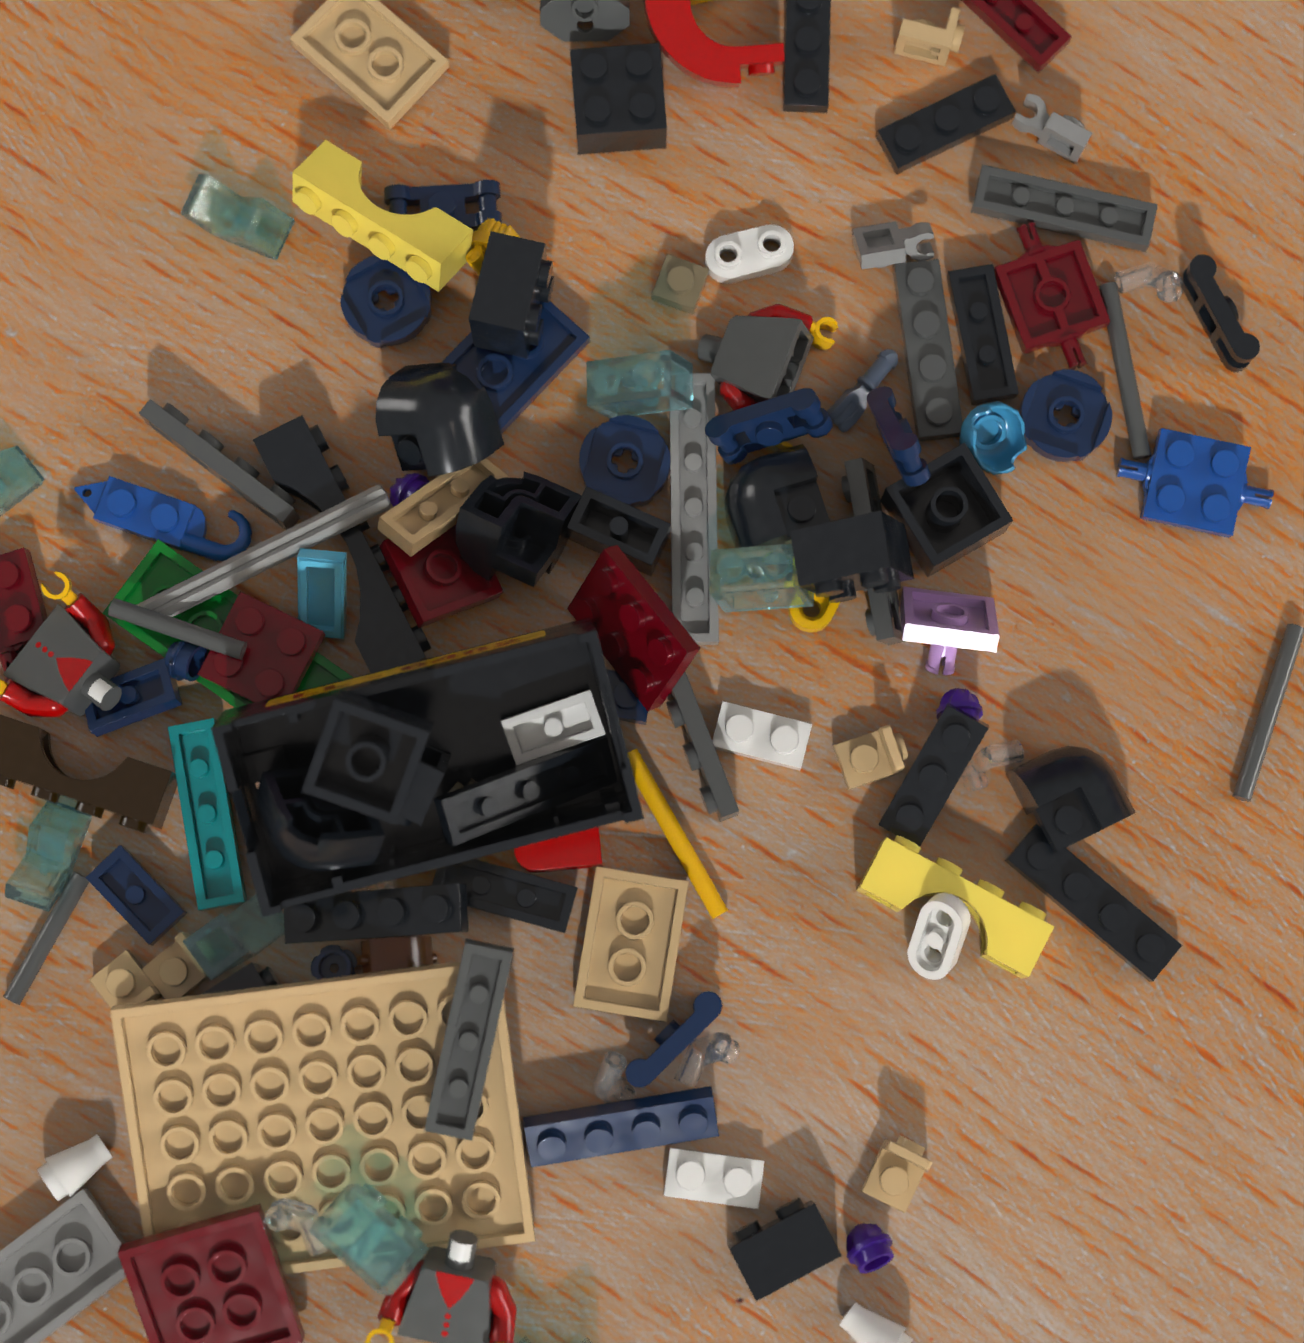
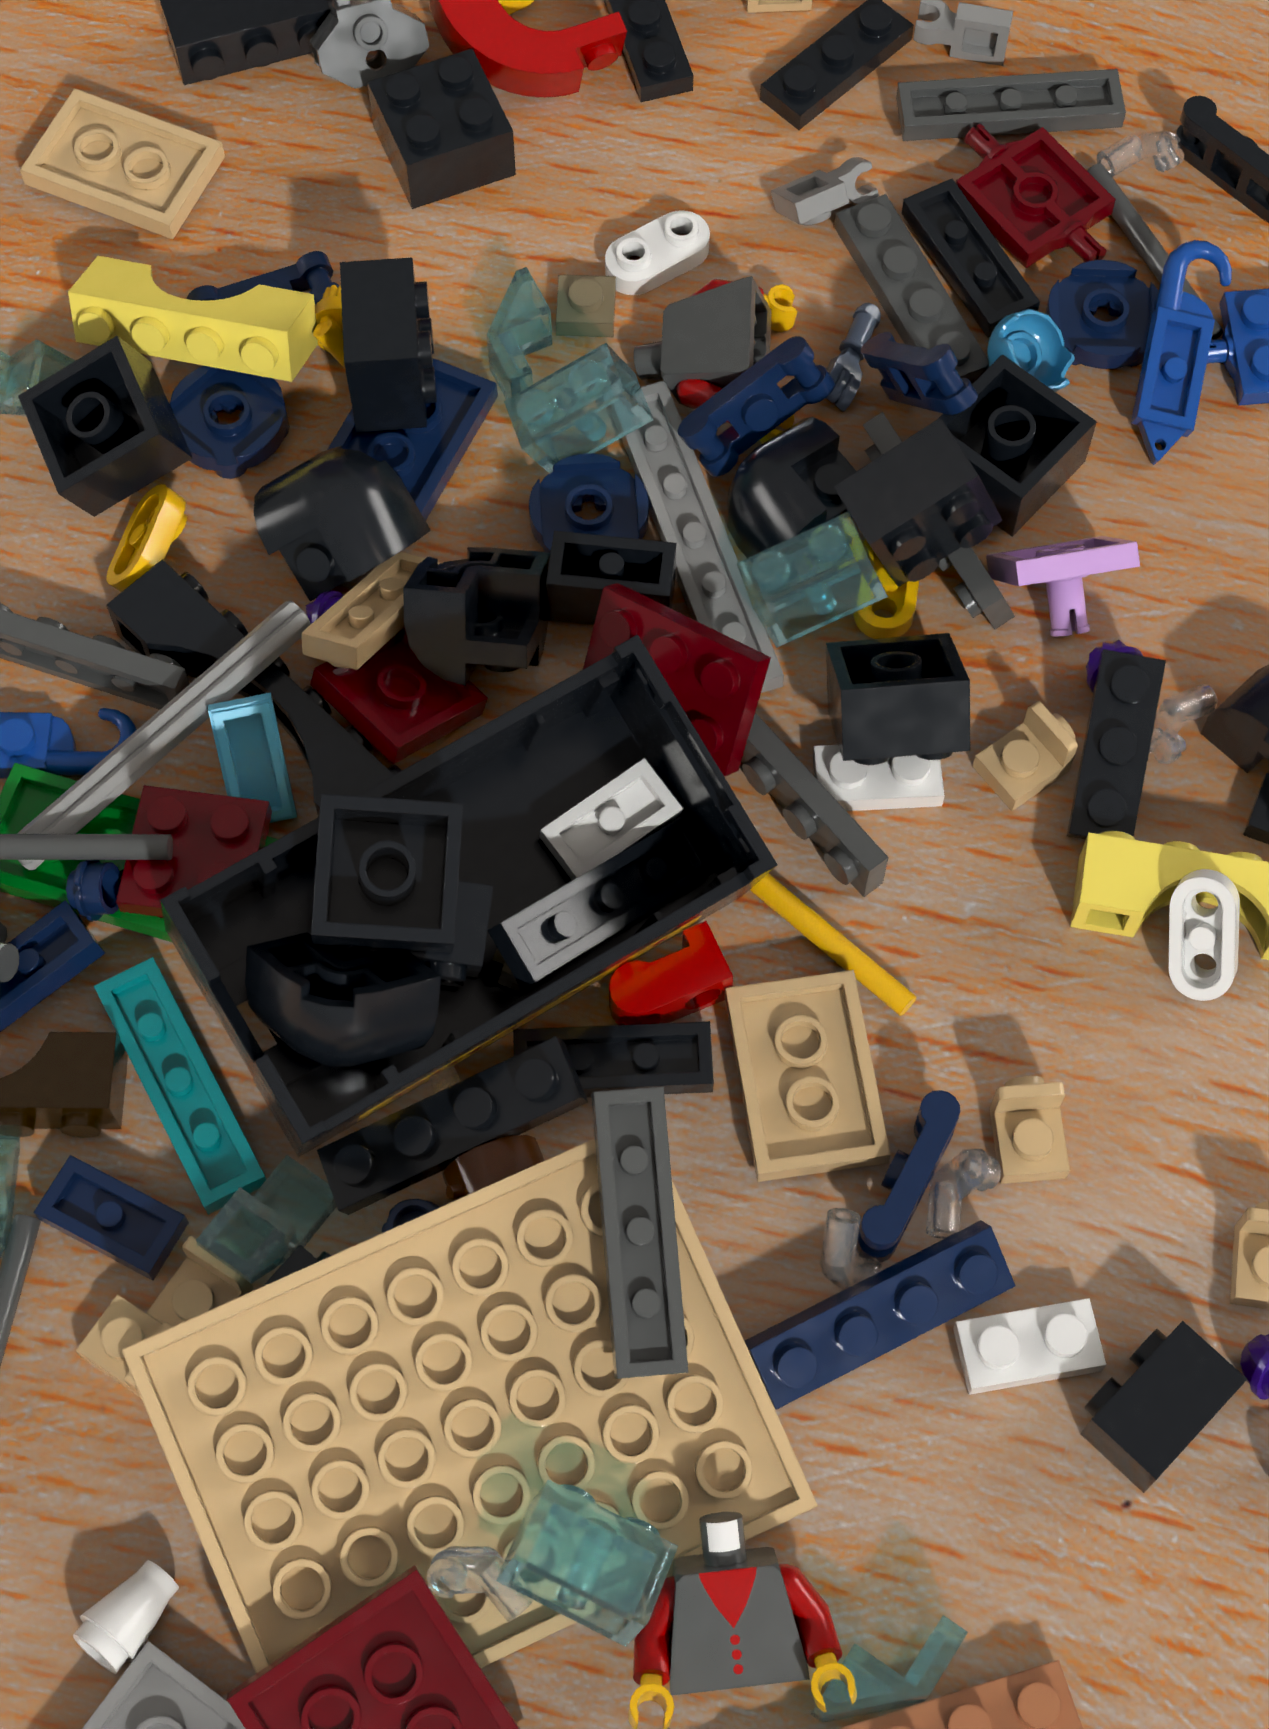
camera: 15 degrees left, 15 degrees down
(291, 291) = (104, 427): none -> black brick
(298, 386) = (148, 535): none -> yellow plate
(622, 291) = (518, 330): none -> clear light blue slope
(768, 1033) = (1029, 1130): none -> tan bracket
(788, 692) = (898, 698): none -> black brick
(1103, 468) = (1176, 352): none -> blue plate

